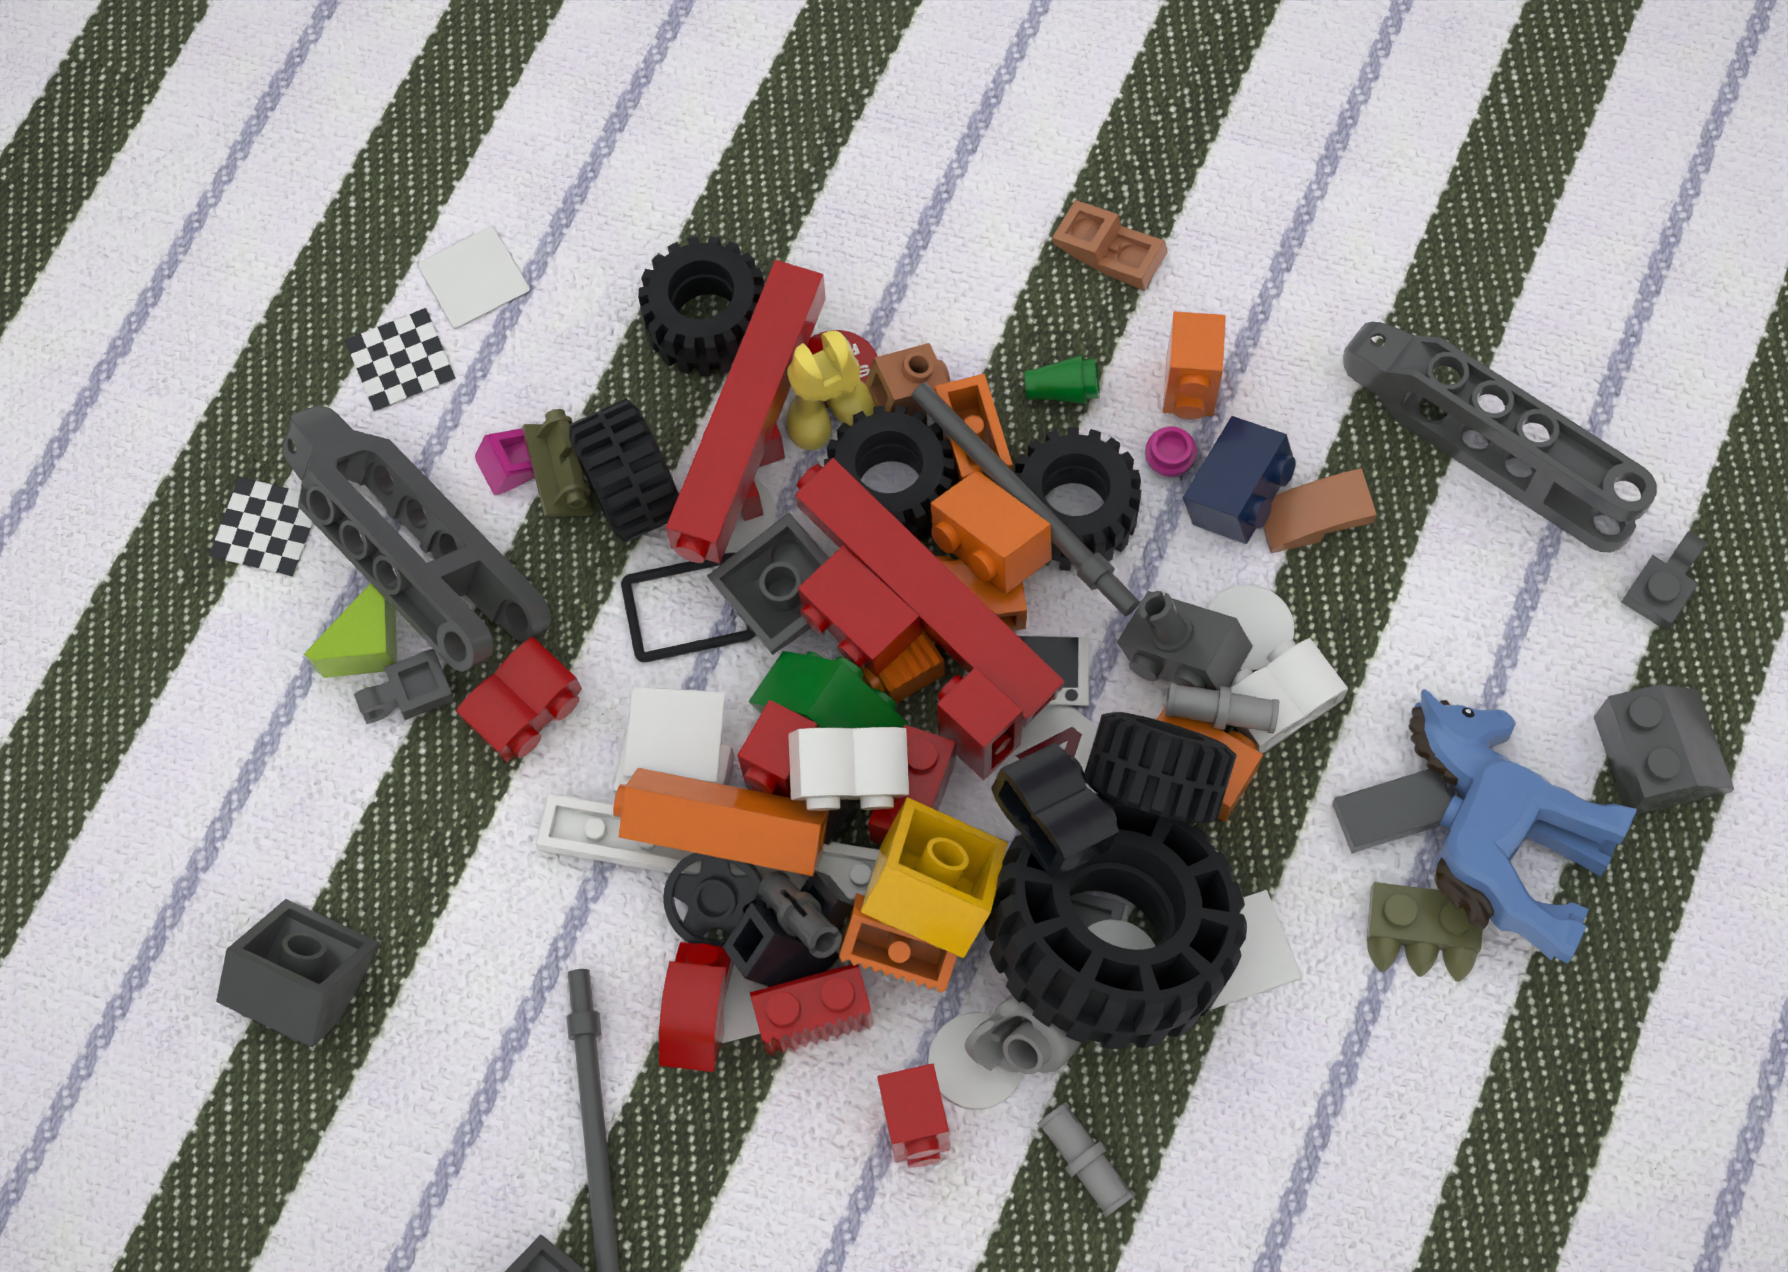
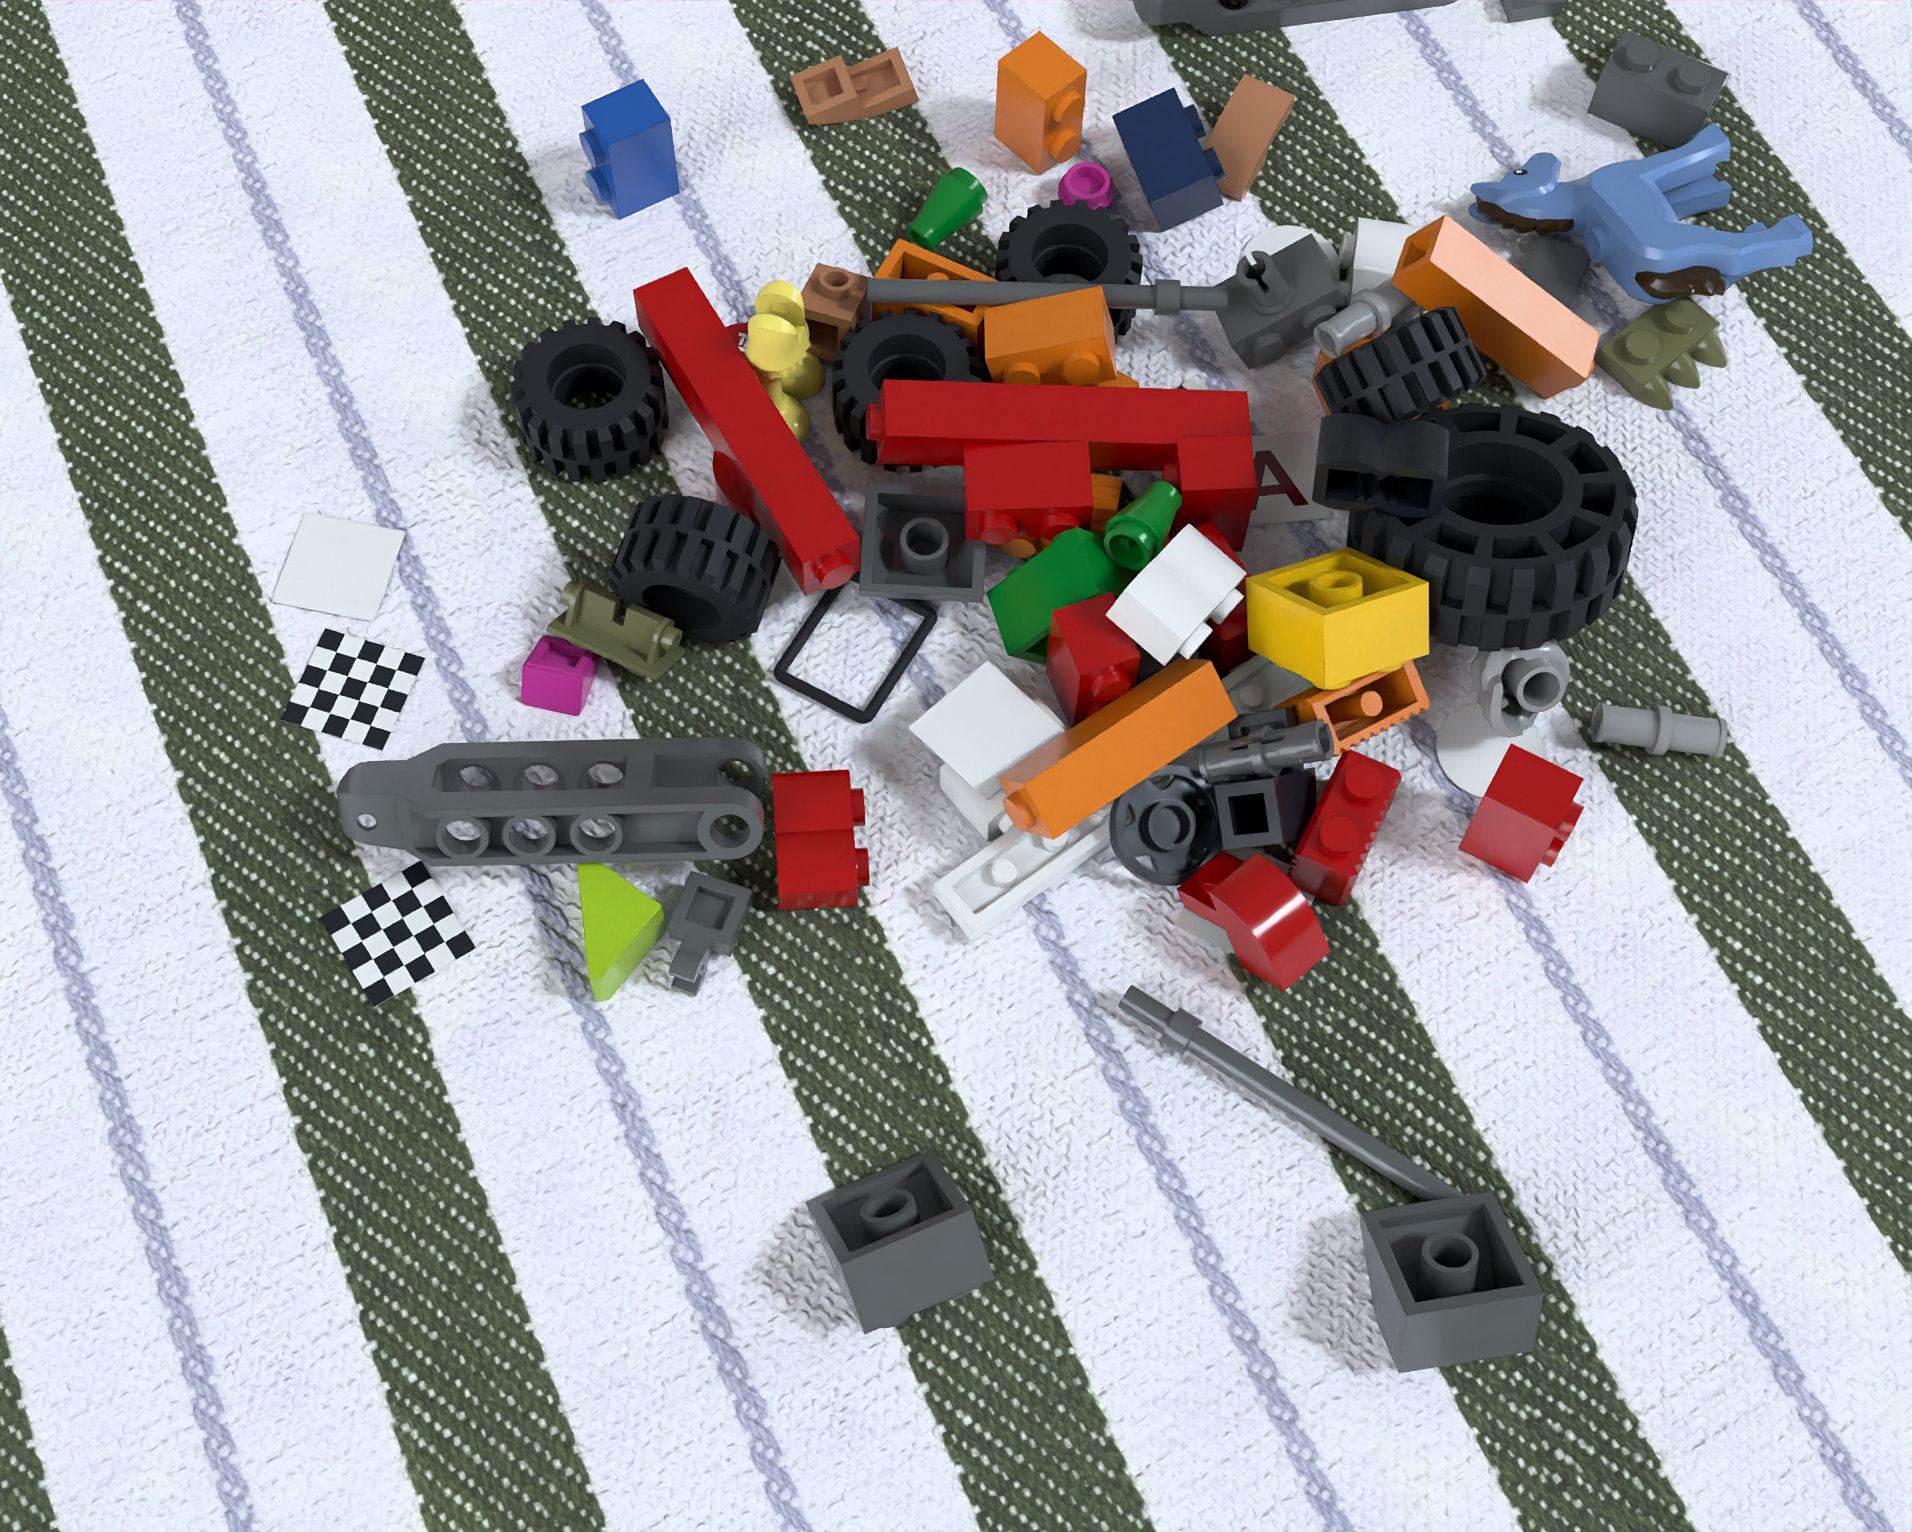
camera: 55 degrees left, 5 degrees down
(892, 701) = (1142, 527): none -> green cone
(903, 162) = (629, 149): none -> blue brick
(1308, 788) = (1499, 307): none -> orange brick

